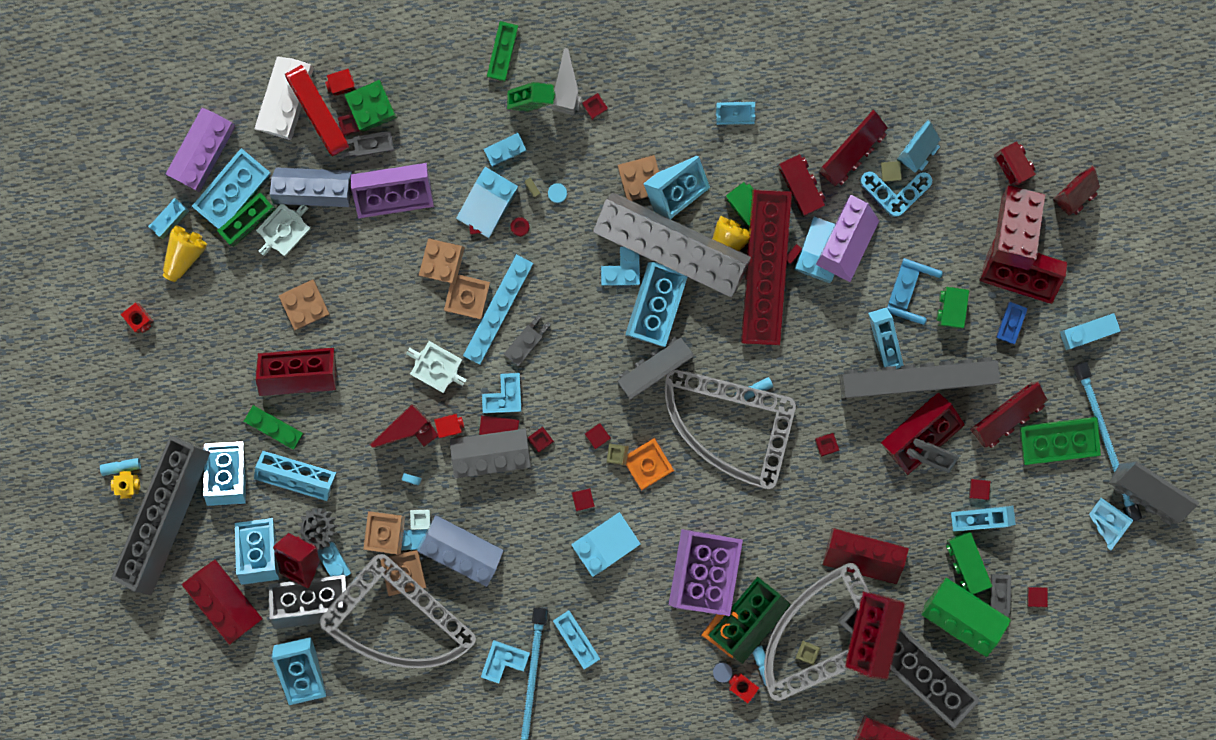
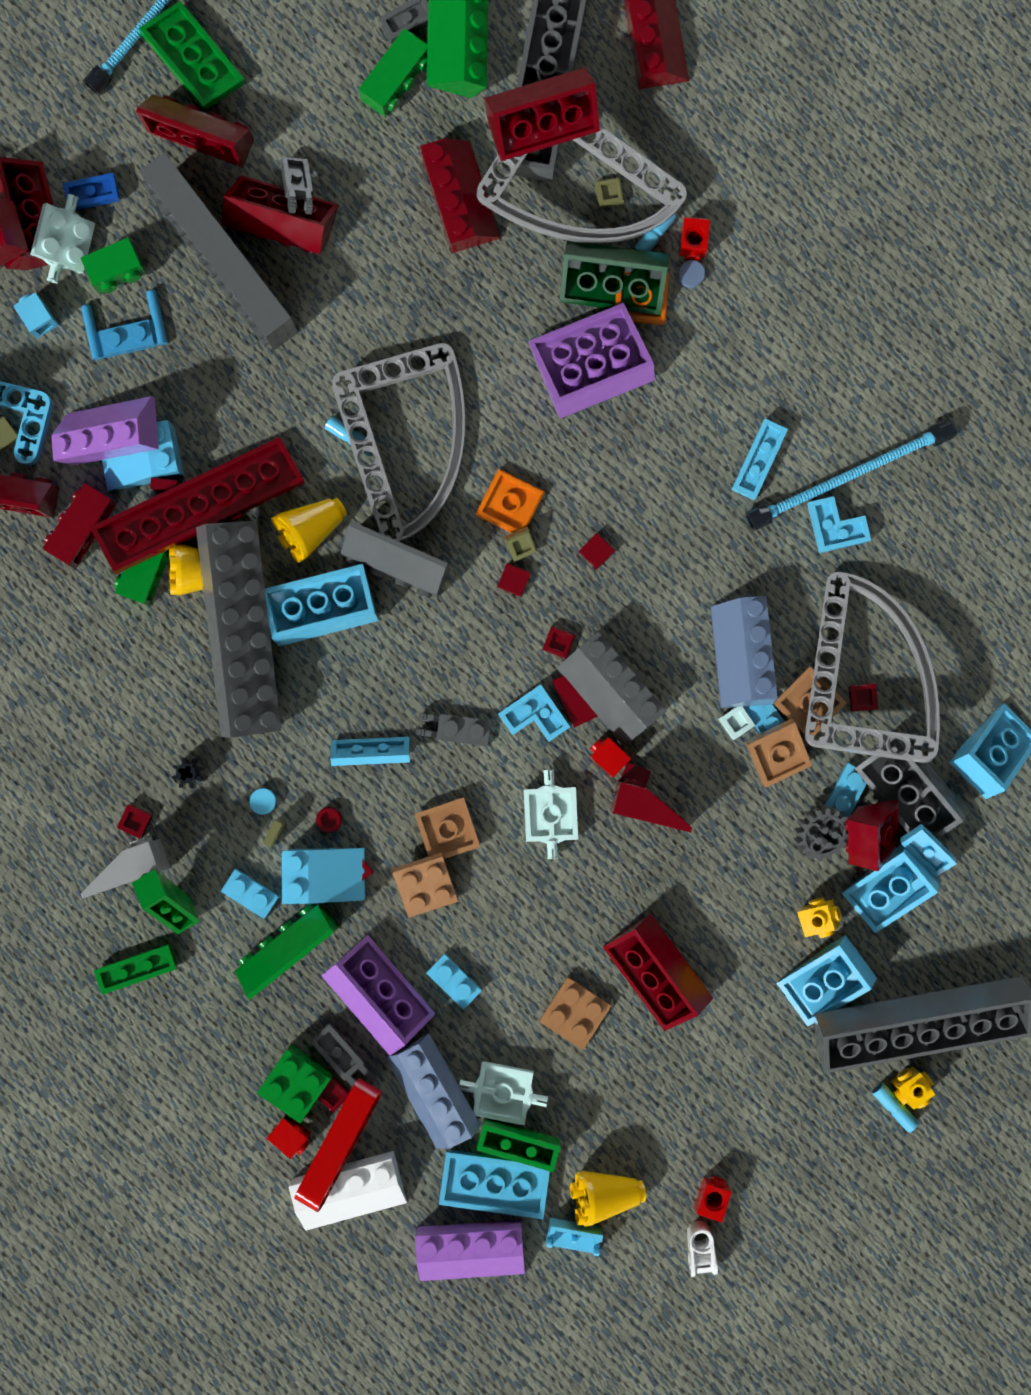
camera: 130 degrees left, 0 degrees up
(108, 289) = (701, 1253): none -> white piece
(222, 601) = (975, 890): dark red slope -> none
(265, 587) = (928, 850): none -> medium azure plate
(266, 493) = (820, 918): none -> yellow brick
(273, 427) = (737, 958): green plate -> none
(292, 479) = (783, 898): medium azure fence -> none
(371, 242) = (454, 981): none -> medium azure plate
(385, 609) = (863, 697): none -> dark red tile
(411, 479) = (697, 761): medium azure tile -> none
(455, 151) = (285, 950): none -> green slope
(498, 309) = (440, 785): medium azure plate -> none
(546, 279) = (370, 751): none -> medium azure plate
(604, 152) = (195, 770): none -> black gear
(605, 544) = (631, 493): medium azure slope -> none
(624, 274) = (305, 663): medium azure plate -> none
(635, 174) = (186, 715): medium nougat plate -> none
(676, 187) = (169, 666): medium azure slope -> none
(711, 328) = (308, 526): none -> yellow cone
(735, 113) = (42, 653): medium azure hinge -> none
(827, 444) = (360, 315): dark red tile -> none
(886, 337) = (195, 322): medium azure slope -> none
(953, 239) = (35, 315): none -> medium azure brick
(979, 489) = (304, 114): dark red tile -> none
(983, 518) = (334, 87): medium azure slope -> none
(990, 286) = (62, 238): none -> light aqua plate
(1089, 331) = (48, 100): medium azure slope -> none

